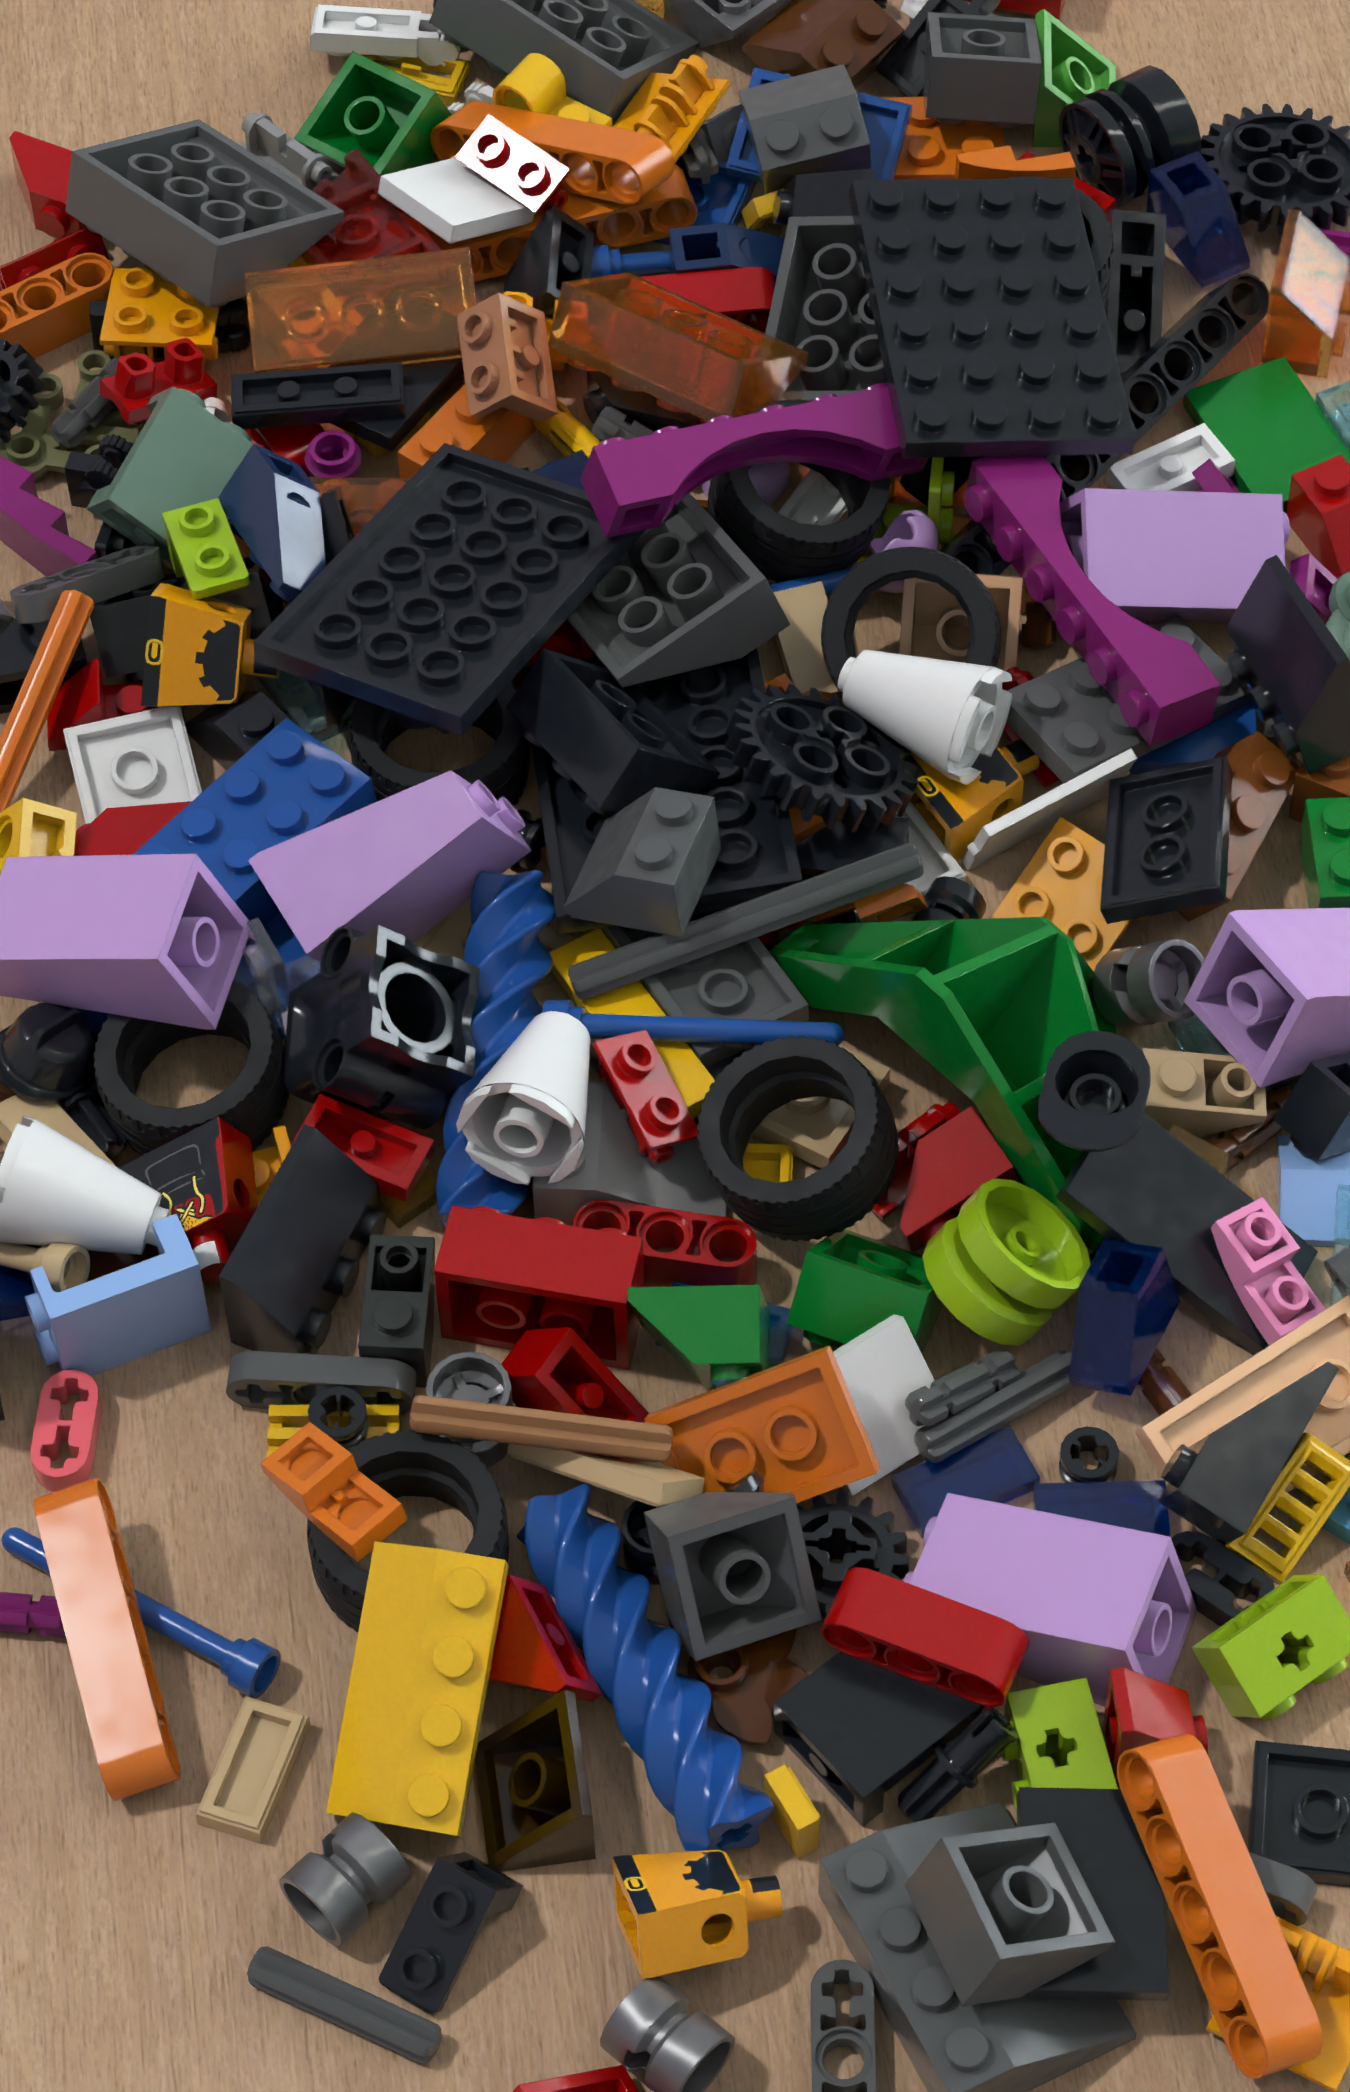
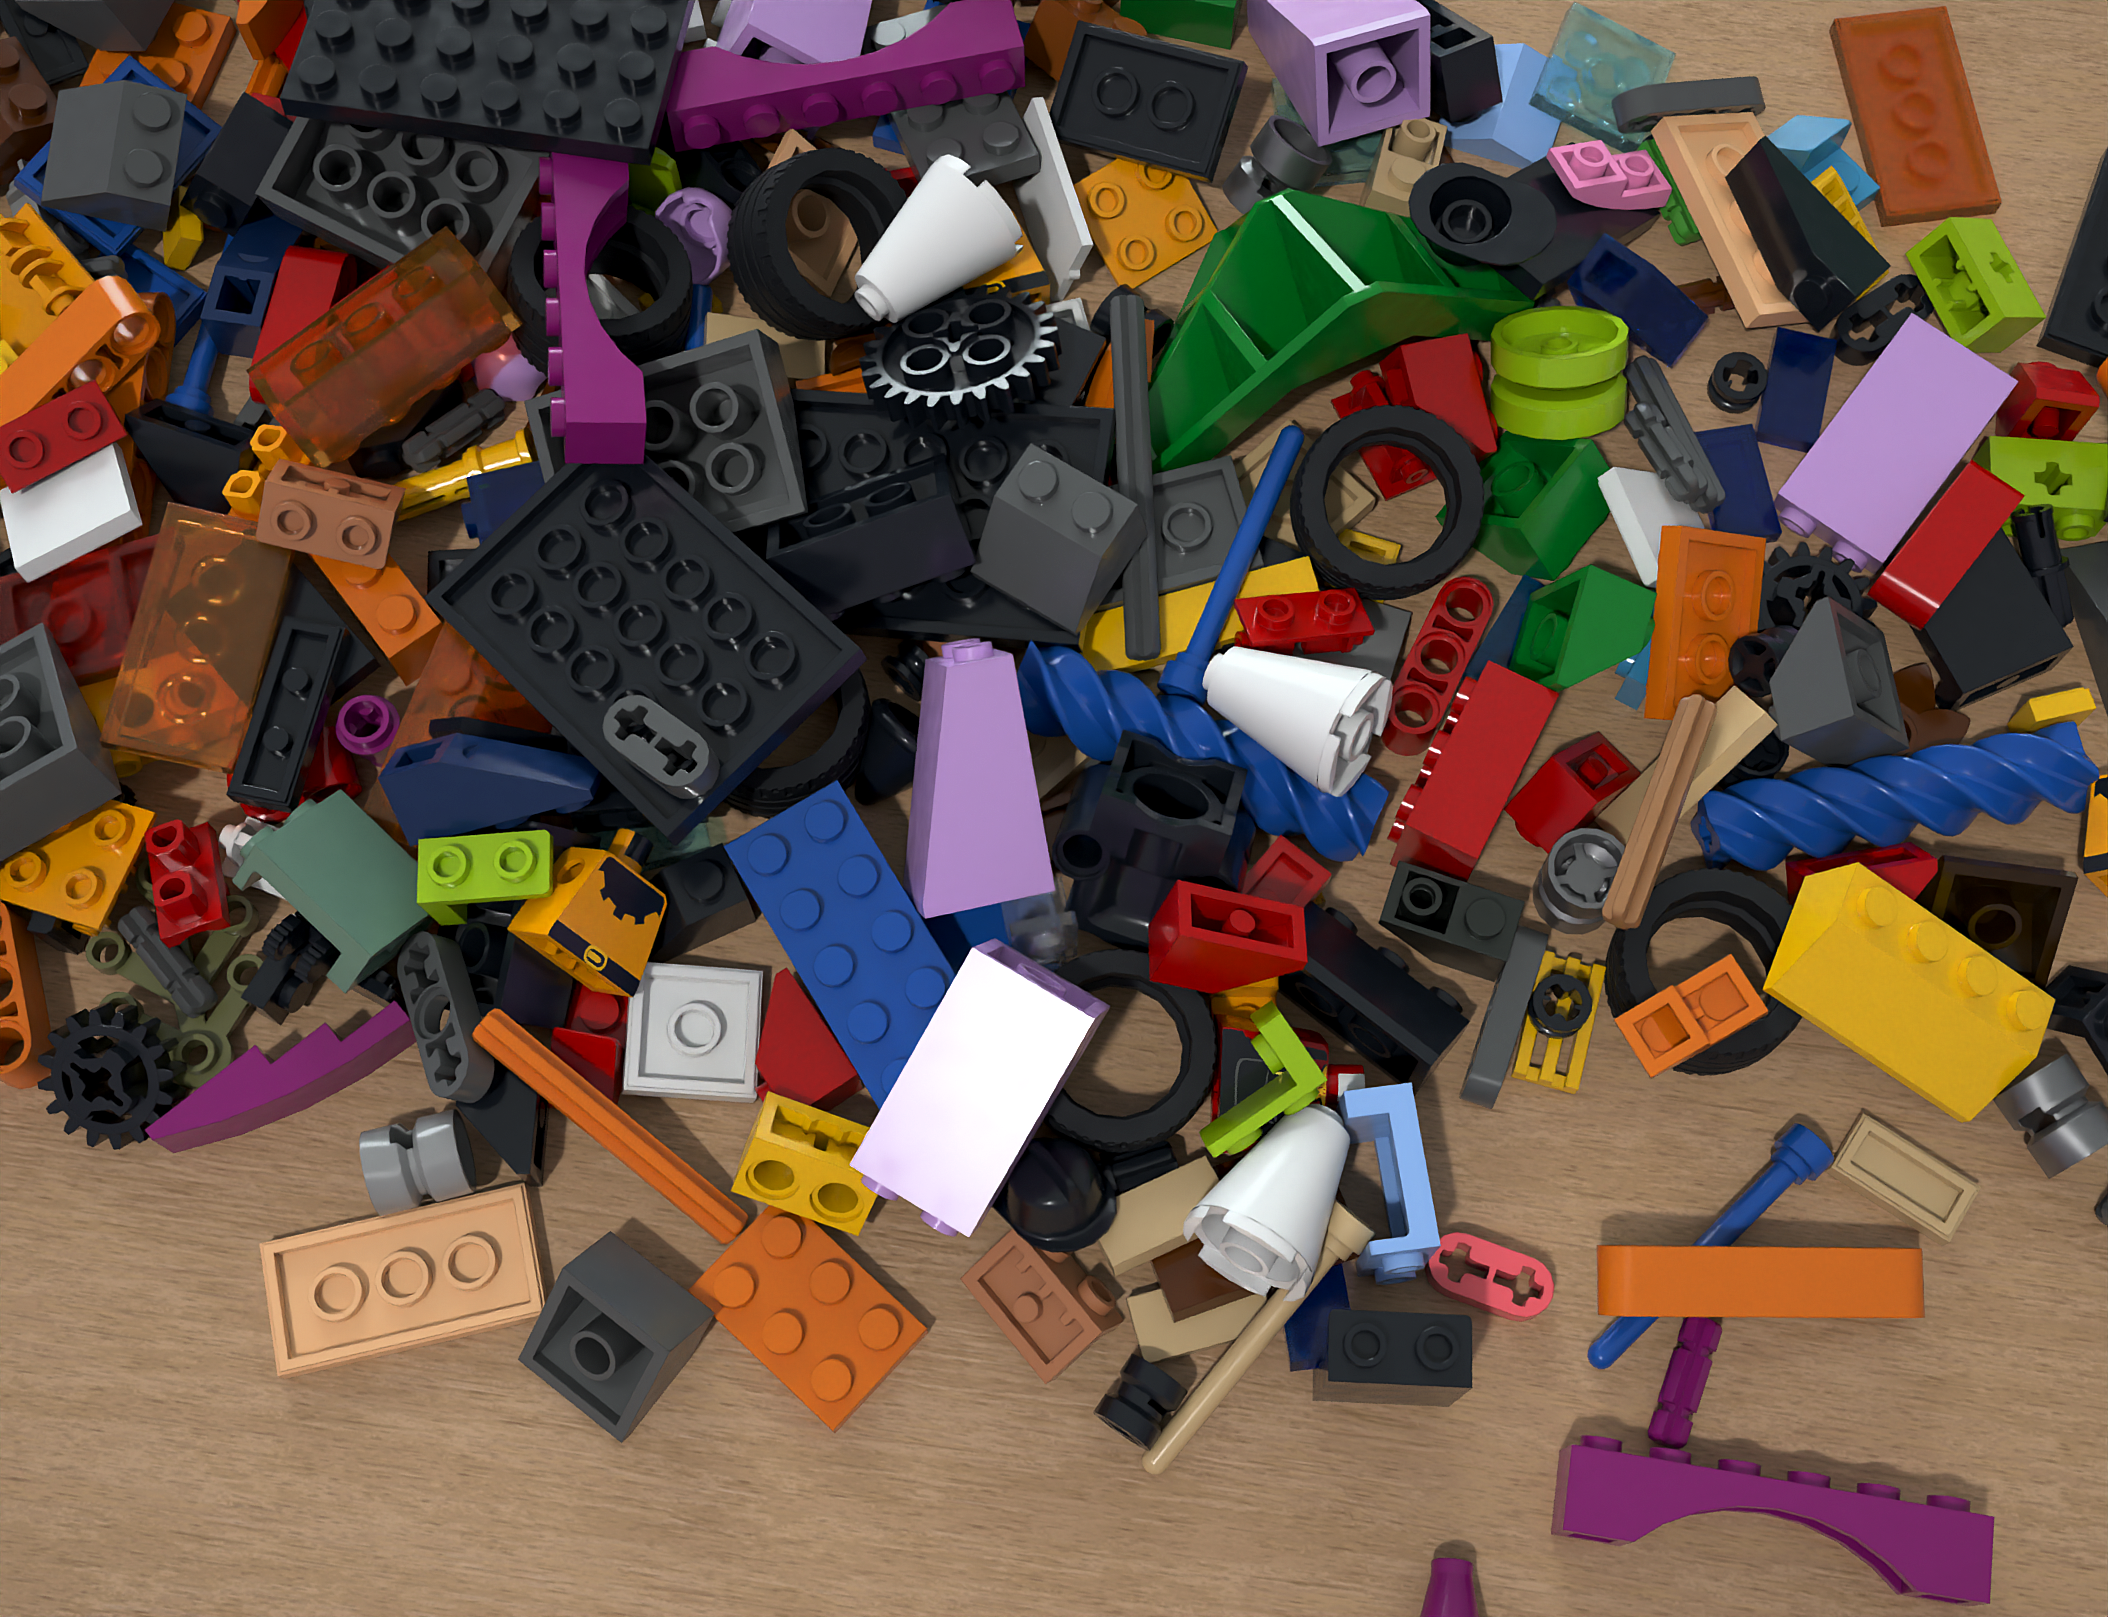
camera: 75 degrees left, 15 degrees up
(198, 1167) = (1286, 1093): none -> lime bracket
(288, 1075) = (1223, 939): none -> red slope
(318, 607) = (669, 736): none -> dark grey beam

